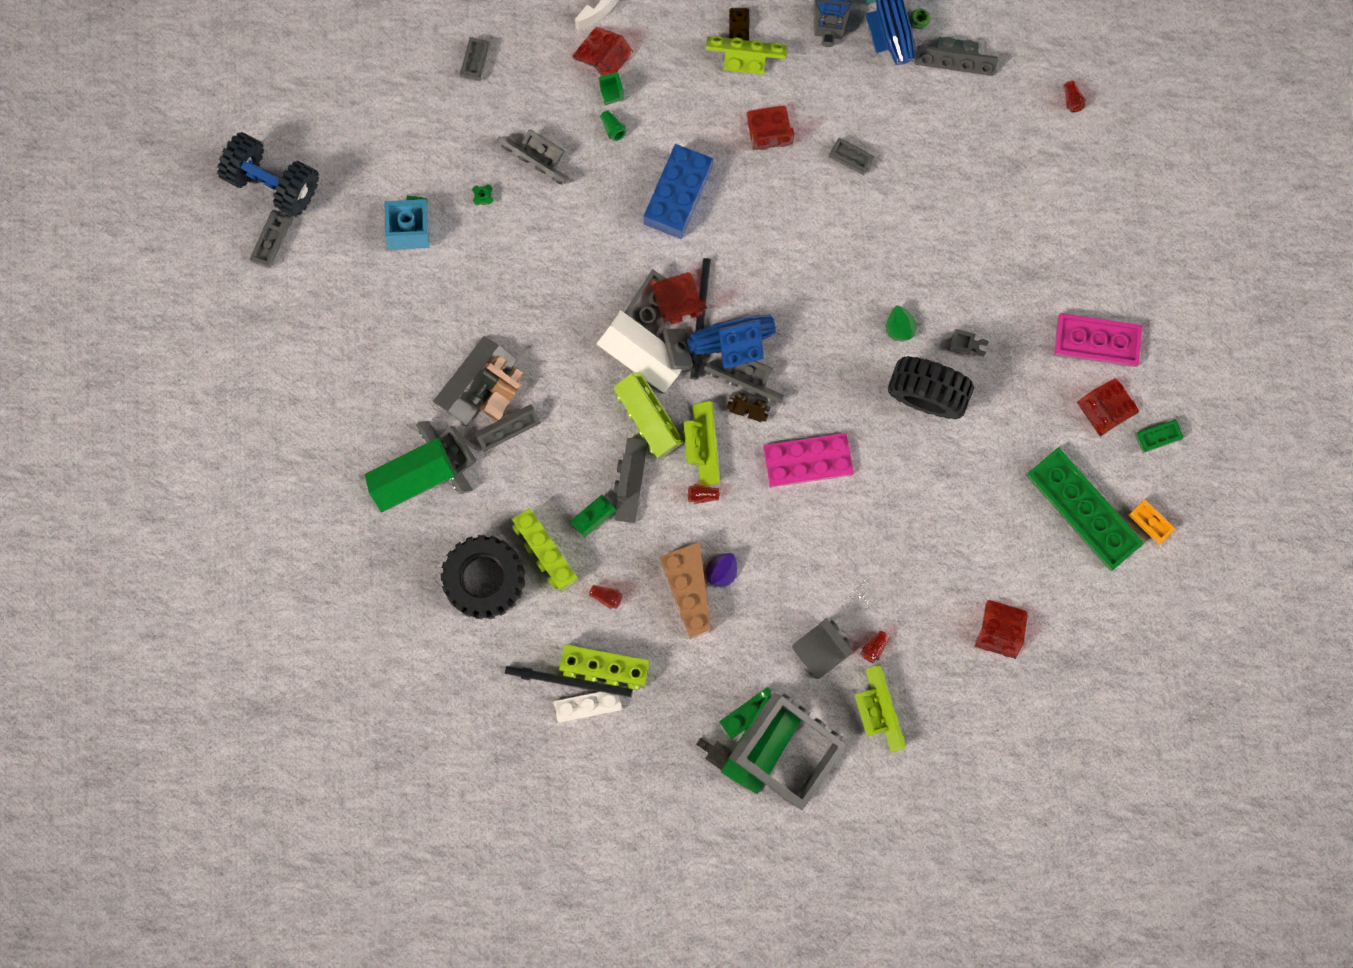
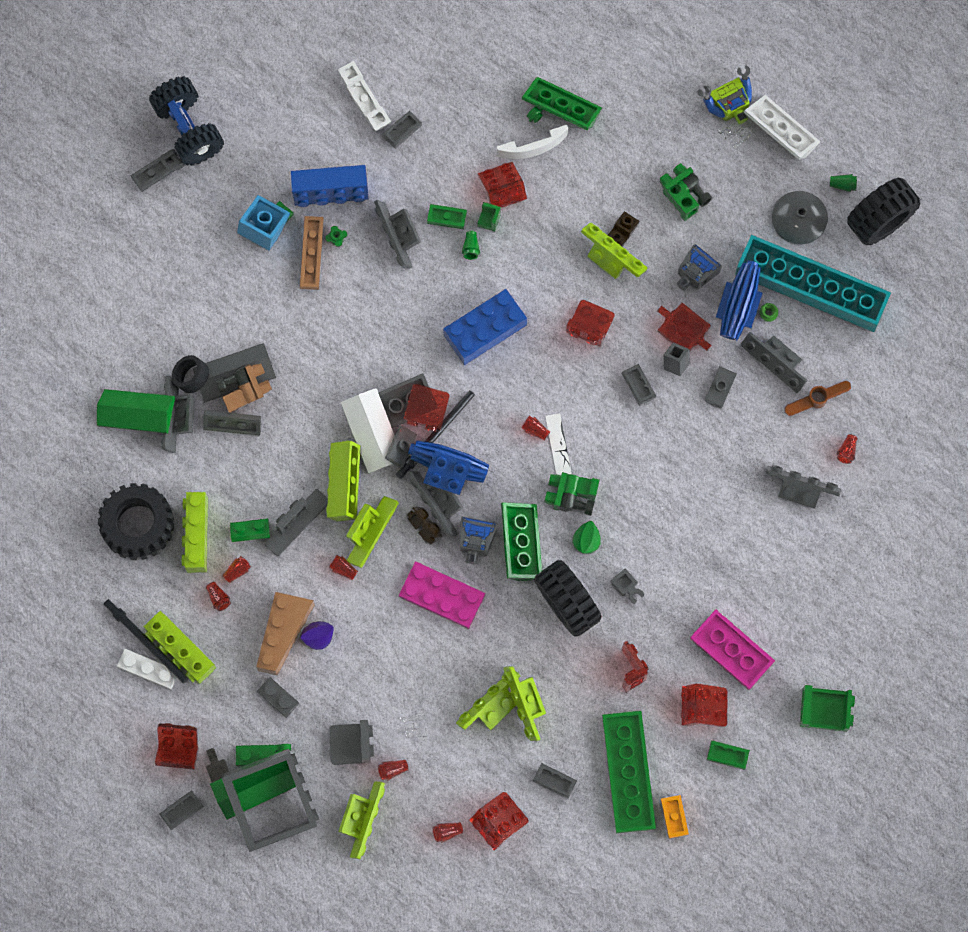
camera: 35 degrees right, 5 degrees down
(417, 51) = (363, 96): none -> white slope
(424, 408) = (198, 380): none -> black tyre
(445, 150) = (329, 185): none -> blue brick
(470, 224) = (311, 253): none -> medium nougat plate
(572, 113) = (446, 216): none -> green plate
(606, 558) = (238, 568): none -> clear red cone
(667, 759) = (177, 746): none -> clear red bracket
(710, 814) = (181, 810): none -> dark grey plate
(725, 651) = (278, 697): none -> dark grey plate
(784, 254) = (535, 427): none -> clear red cone
(803, 388) = (476, 538): none -> torso
(820, 261) = (558, 444): none -> white sticker
(847, 364) = (521, 541): none -> green slope
(855, 289) = (569, 488): none -> green hips
(856, 80) = (684, 327): none -> clear red plate
(870, 111) = (676, 359): none -> dark grey brick
(923, 528) = (490, 707): none -> lime bracket
(924, 112) = (720, 387): none -> dark grey plate
(954, 505) = (527, 701): none -> lime bracket
(962, 671) = (446, 831): none -> clear red cone
(1010, 75) = (808, 402): none -> dark orange piece
(1025, 560) = (554, 780): none -> dark grey plate
(1033, 409) = (639, 673): none -> clear red bracket
(1057, 158) = (801, 489): none -> dark grey bracket
(1215, 338) = (826, 709): none -> green panel

